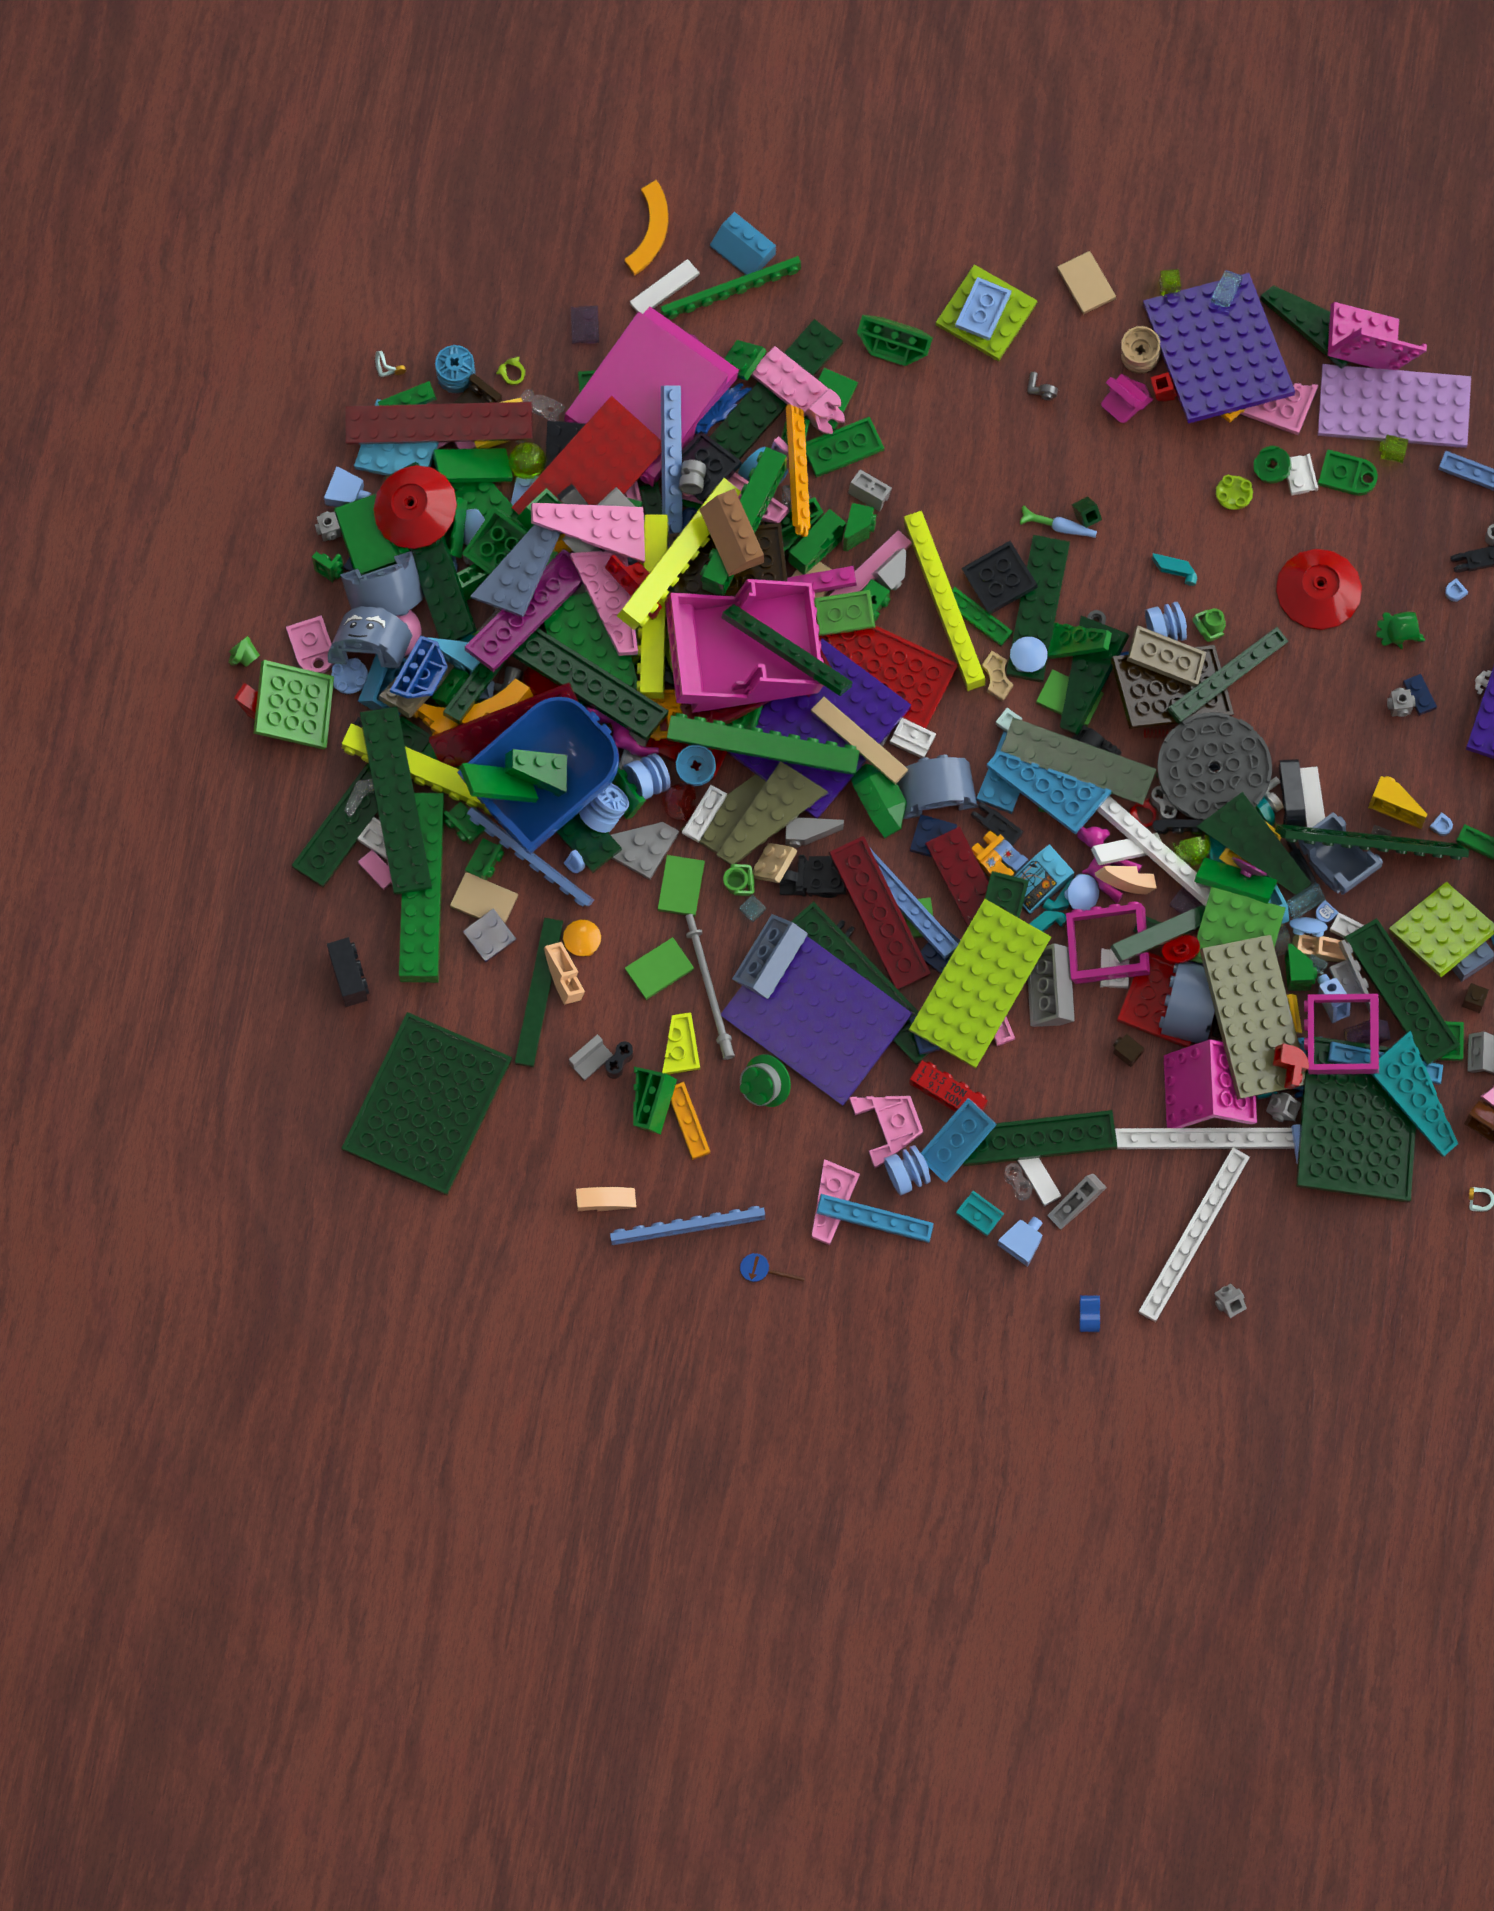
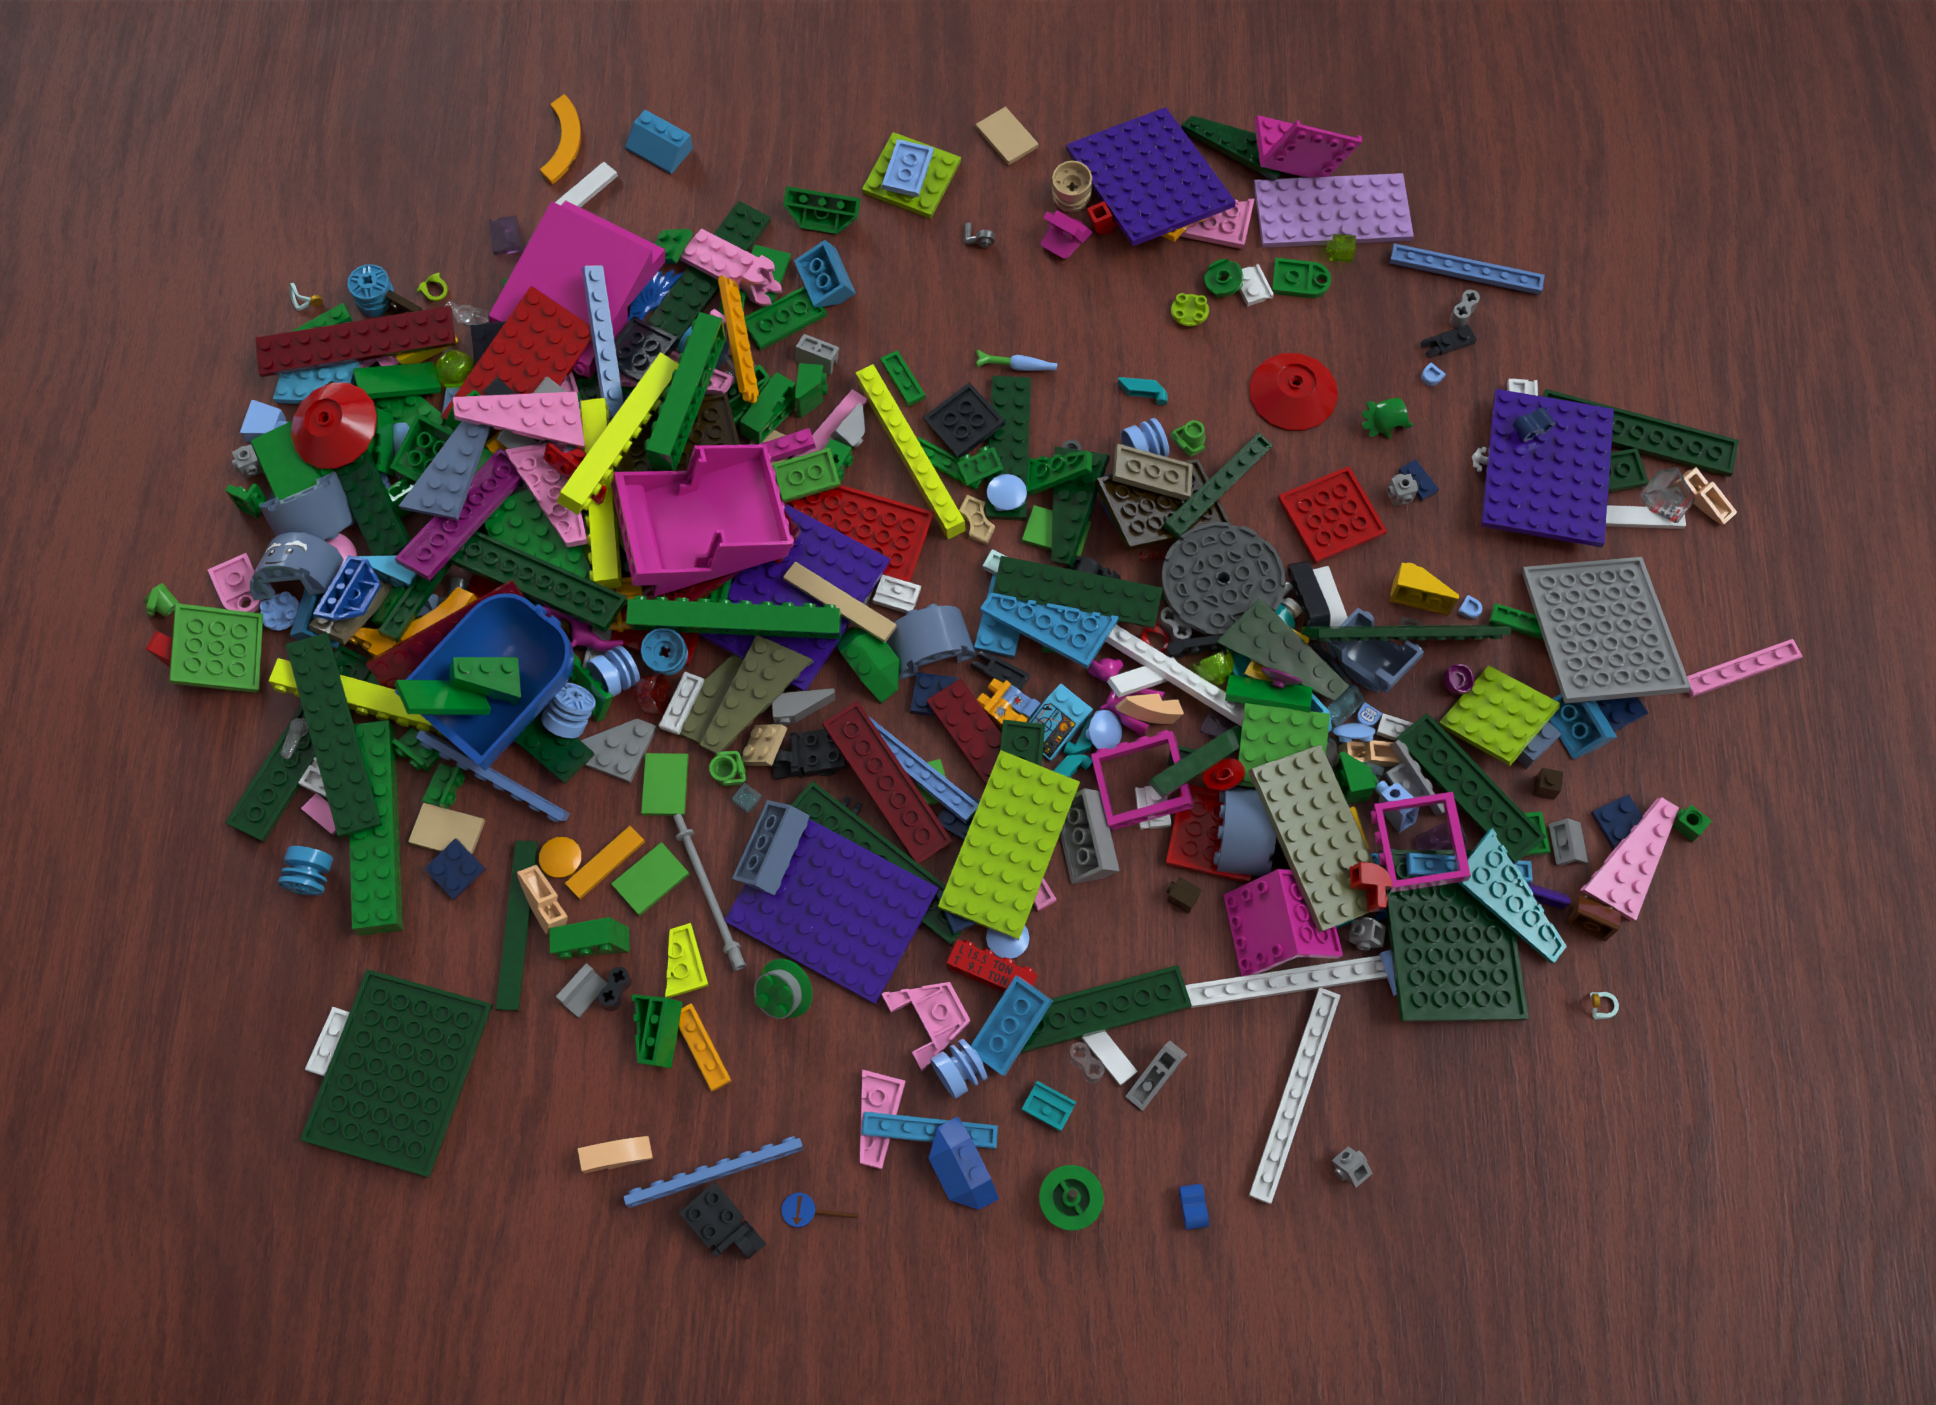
camera: 10 degrees left, 5 degrees down
(348, 971) = (293, 933): black brick -> none
(360, 918) = (305, 870): none -> dark azure wheel
(368, 1070) = (327, 1042): none -> white tile
(574, 862) = (543, 775): light blue tile -> none
(601, 1013) = (589, 938): none -> green wedge
(620, 948) = (605, 862): none -> light orange tile
(687, 1266) = (718, 1223): none -> black plate
(692, 477) = (627, 358): light grey wheel -> none
(731, 287) = (652, 181): green plate -> none
(732, 533) = (672, 400): medium nougat slope -> none
(787, 650) = (747, 514): dark green plate -> none
(887, 411) = (824, 275): none -> dark azure slope
(897, 1251) = (961, 1166): none -> blue wedge
(948, 525) = (903, 378): none -> green plate
(964, 1072) = (1006, 946): none -> light blue dish
(986, 1289) = (1071, 1197): none -> green piece
(1007, 625) = (979, 465): none -> green bracket
(1022, 1240) = (1102, 1130): light blue torso -> none
(1086, 512) = (1044, 345): dark green brick -> none
(1169, 281) = (1089, 122): clear neon green brick -> none
(1226, 288) = (1147, 121): clear light blue tile -> none
(1330, 717) = (1332, 515): none -> red plate
(1415, 890) = (1458, 679): none -> magenta hair
(1452, 1097) = (1550, 897): none -> dark purple slope

